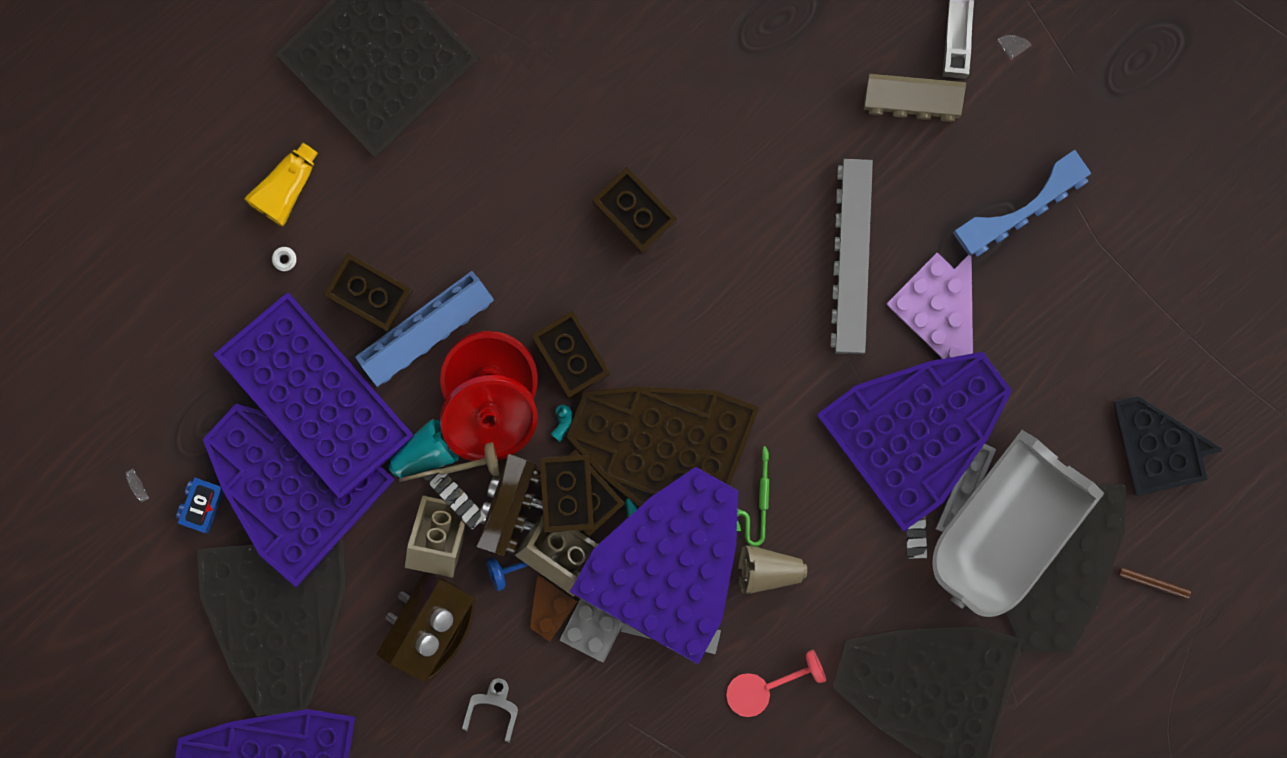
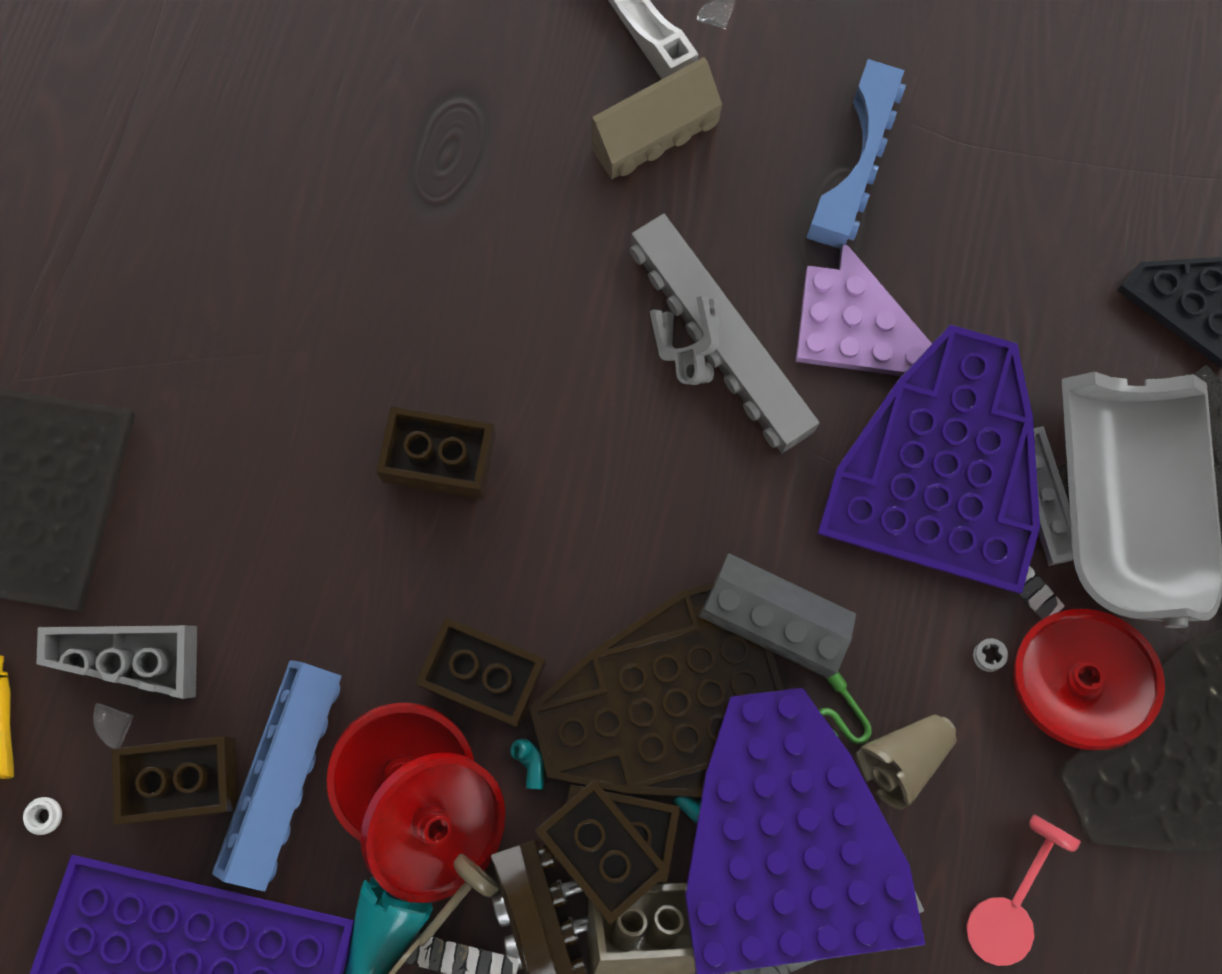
camera: 40 degrees left, 10 degrees down
(351, 234) = (111, 724): none -> clear tile
(389, 205) = (138, 656): none -> light grey wedge
(757, 442) = (779, 616): none -> dark grey slope
(819, 261) = (690, 360): none -> light grey piece
(854, 549) = (1000, 652): none -> light grey bush
(900, 602) = (1088, 679): none -> red dish

